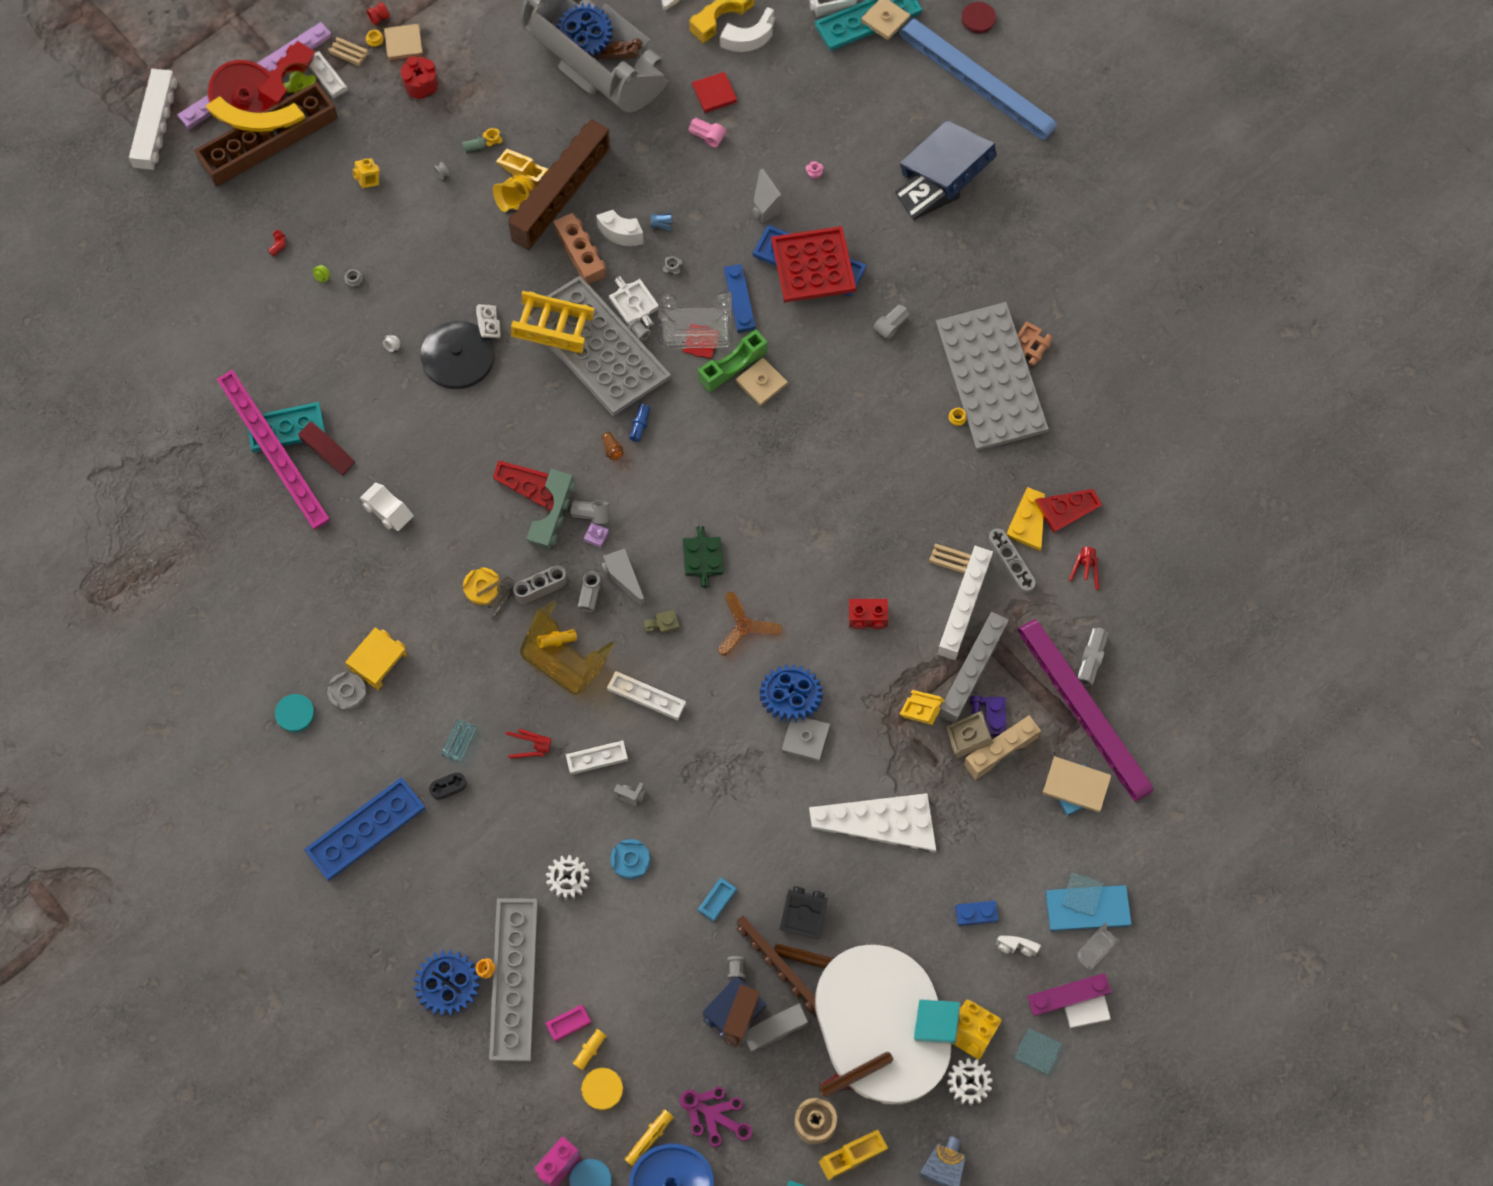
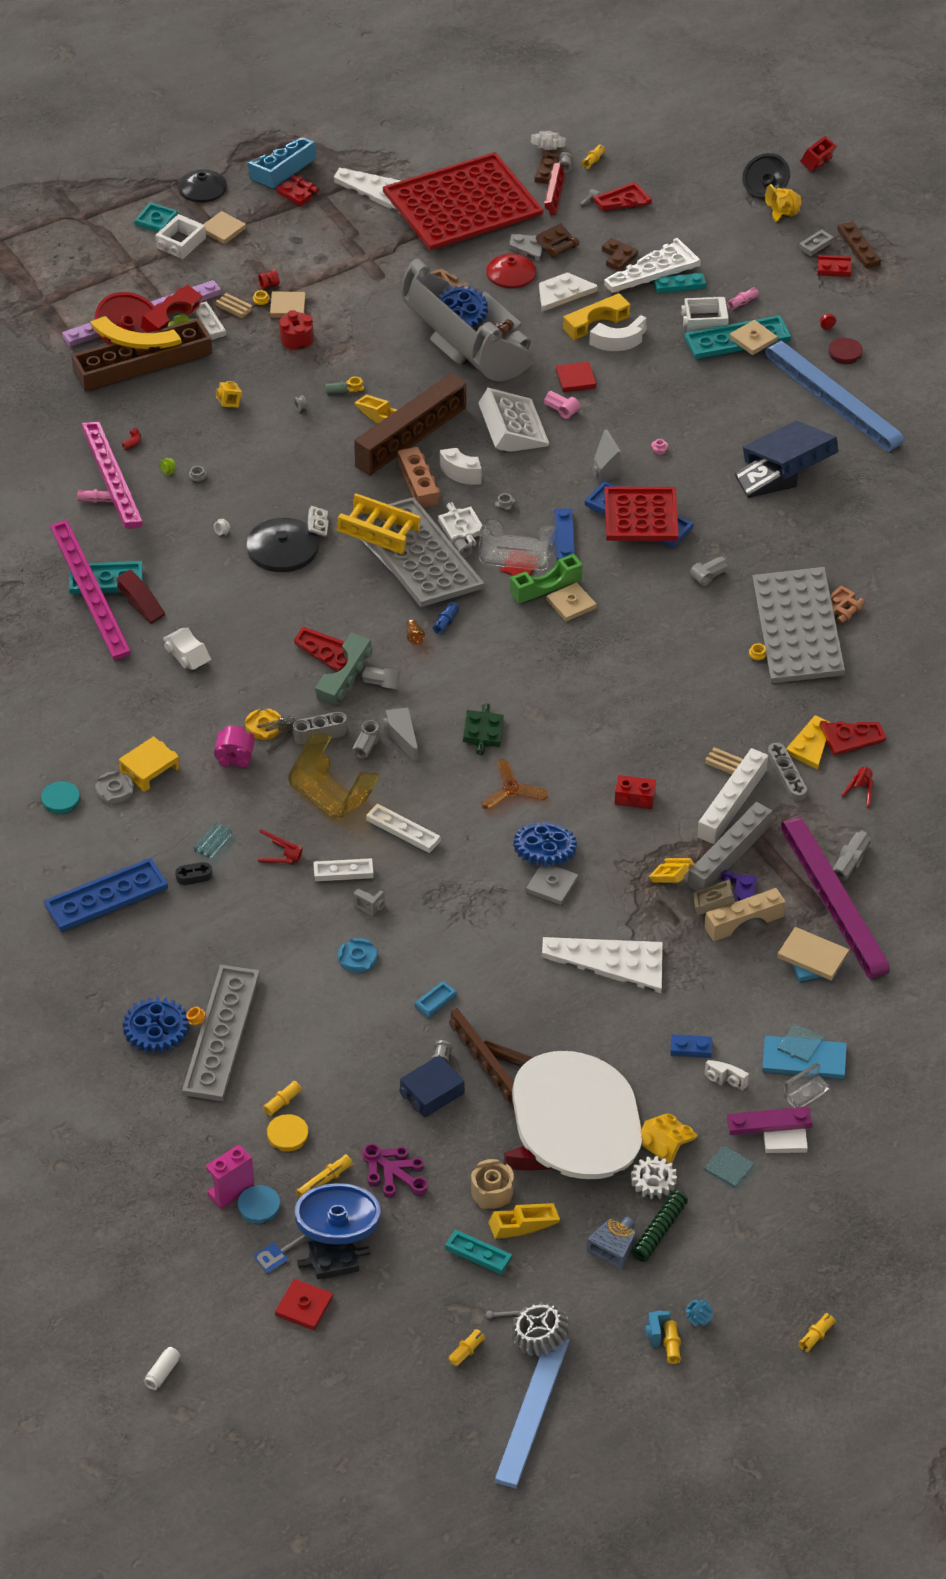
camera: 10 degrees right, 20 degrees down
(153, 119) = (38, 332): white brick -> none
(263, 322) = (94, 496): none -> bright pink pin
(266, 297) = (112, 475): none -> dark pink plate
(459, 626) = (234, 747): none -> dark pink brick
(512, 192) = (361, 423): yellow helmet -> none
(556, 638) = (326, 770): yellow pin -> none
(562, 883) = (291, 958): white gear -> none
(568, 1023) = (266, 1076): dark pink tile -> none
(596, 535) = (383, 699): lavender tile -> none
(657, 221) = (497, 467): flat silver piece -> none
(661, 161) = (512, 421): none -> white slope
(664, 621) = (433, 774): olive plate -> none
(740, 1016) = (436, 1078): reddish brown brick -> none
(776, 1028) = (470, 1106): light grey slope -> none
(804, 912) = (518, 1017): black plate -> none
(856, 1074) = (539, 1141): reddish brown axle -> none
(937, 1021) = (631, 1117): teal tile -> none
(985, 1138) = (659, 1226): none -> dark green piece

